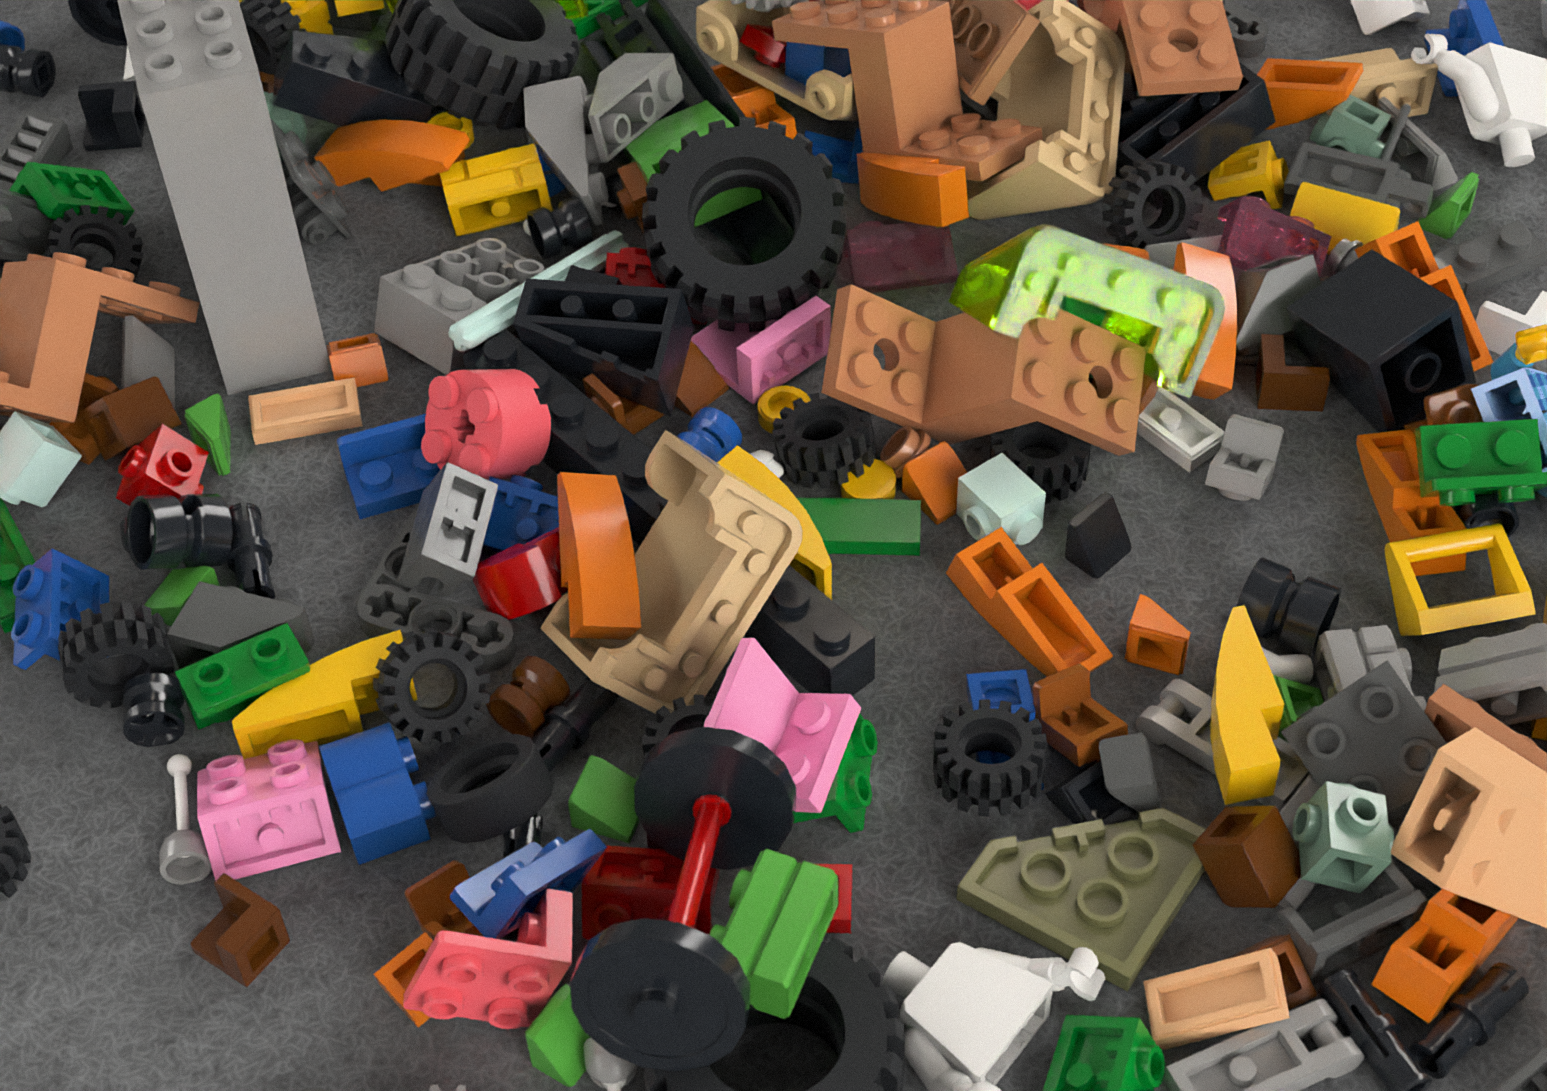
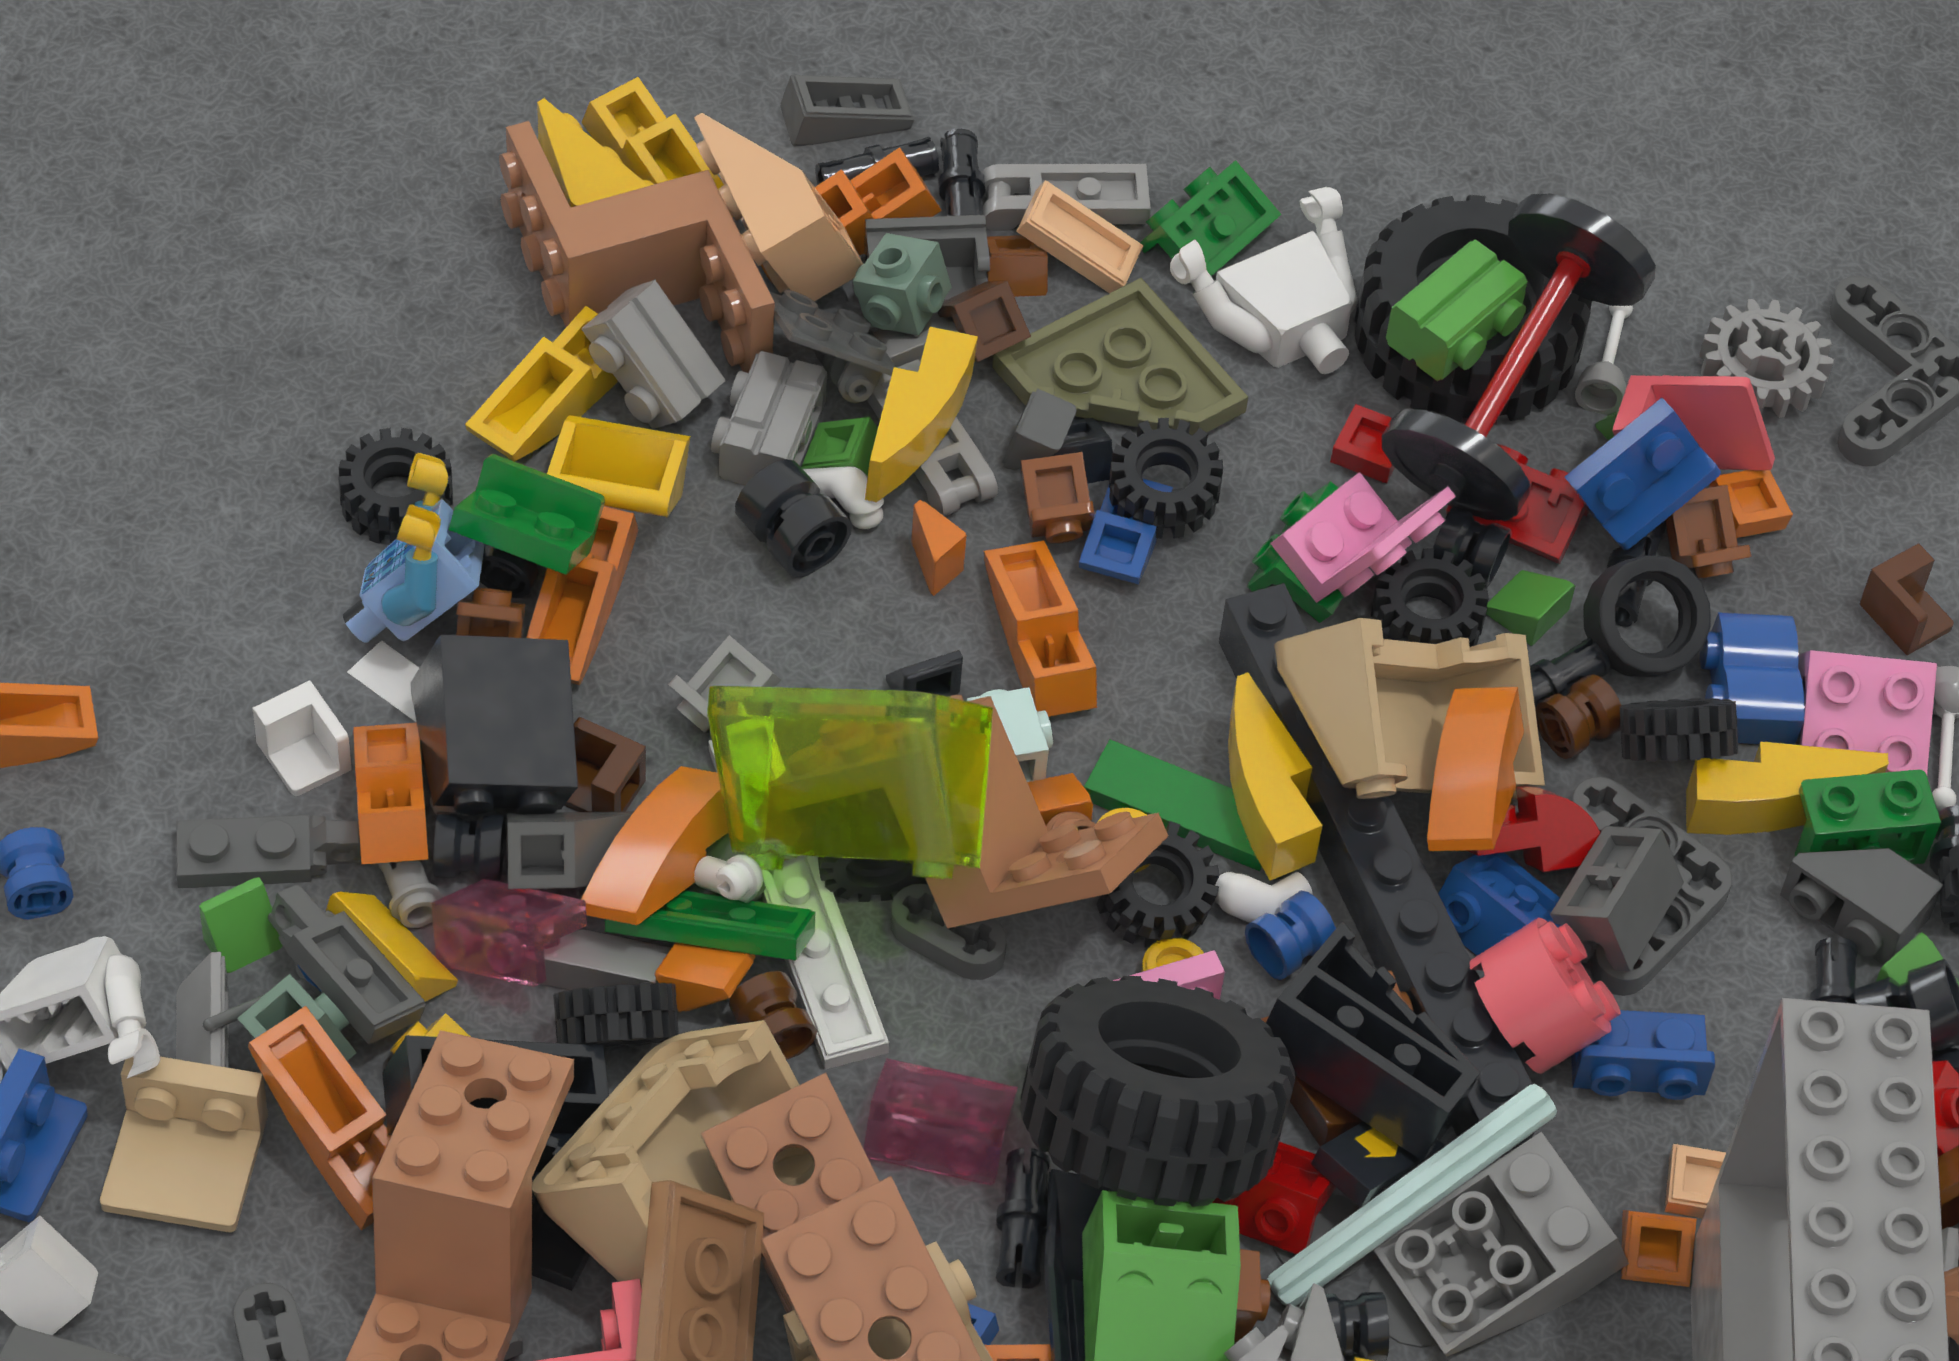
camera: 165 degrees left, 5 degrees up
(913, 188) = (905, 1138): orange slope -> none

